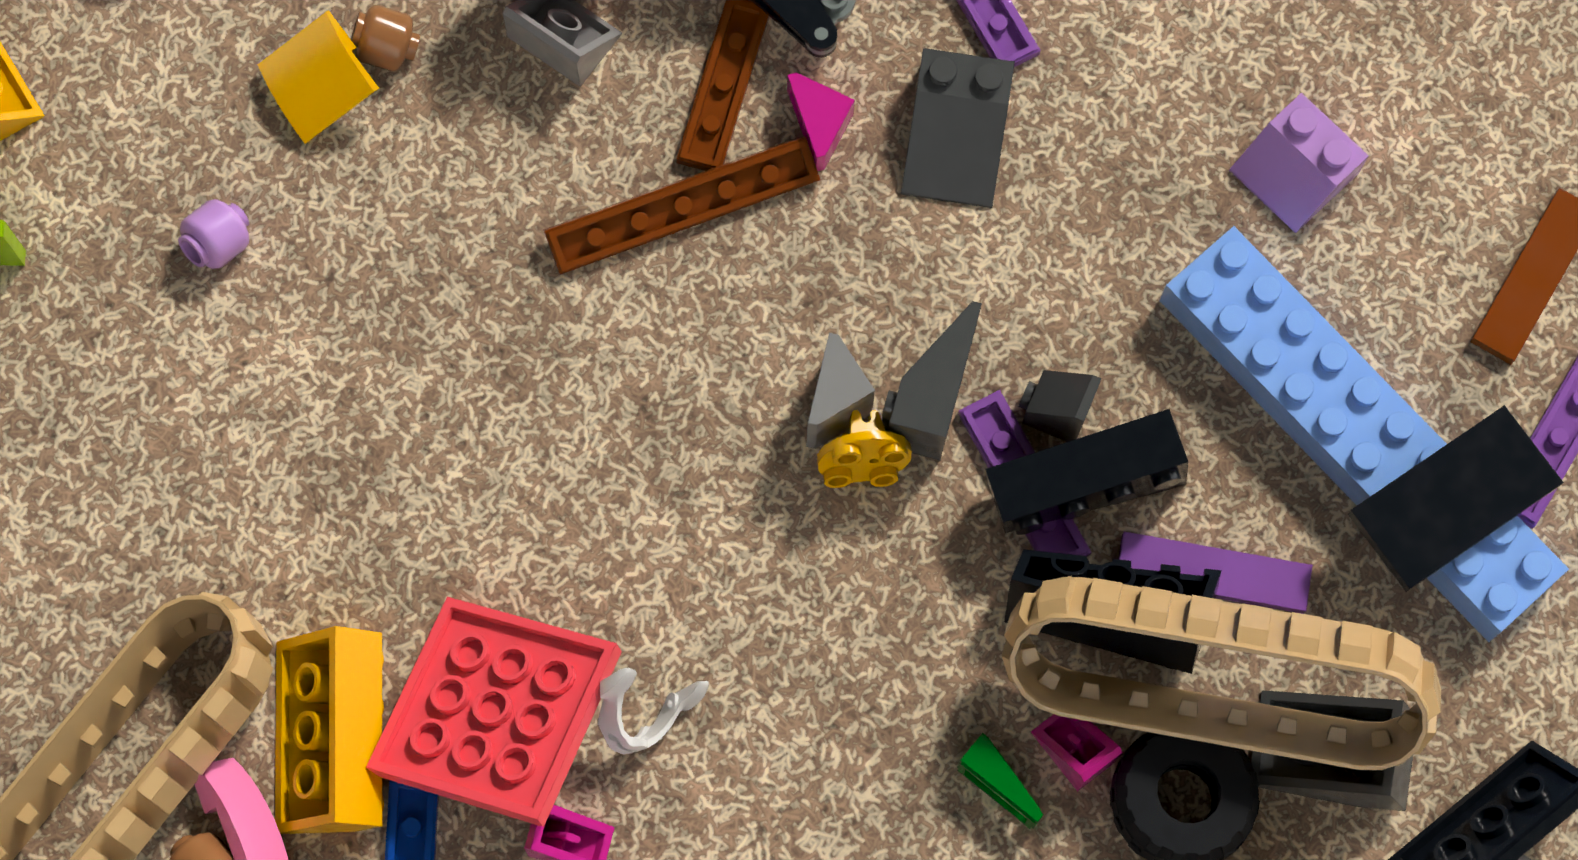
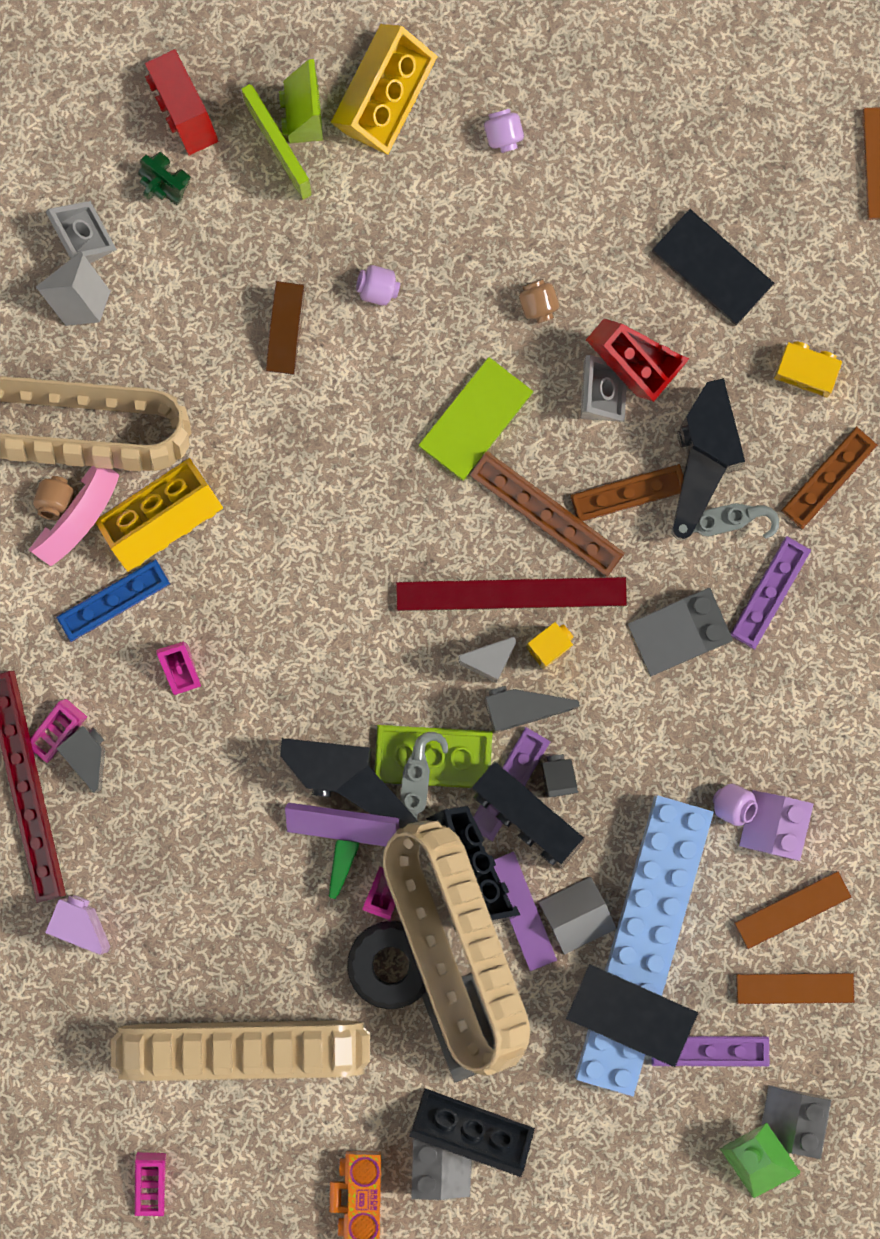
camera: 60 degrees right, 10 degrees up
(185, 392) = (285, 327): none -> reddish brown slope
(316, 77) = (493, 281): yellow slope -> none
(488, 220) = (476, 418): none -> lime tile
(494, 710) = (217, 590): coral plate -> none
(610, 717) = (256, 674): white helmet -> none
(759, 322) = (511, 594): none -> dark red tile
(820, 114) = (641, 556): dark pink slope -> none
(864, 454) = (468, 692): yellow plate -> none
(868, 302) = (550, 644): none -> yellow brick
(872, 684) = (348, 772): none -> black slope
(920, 563) = (460, 767): none -> lime tile
(941, 741) = (340, 824): none -> medium lavender tile
(1238, 198) = (735, 805): none -> lavender head
(1264, 499) = (577, 915): none -> light grey slope
(1425, 215) = (792, 910): none -> dark orange tile

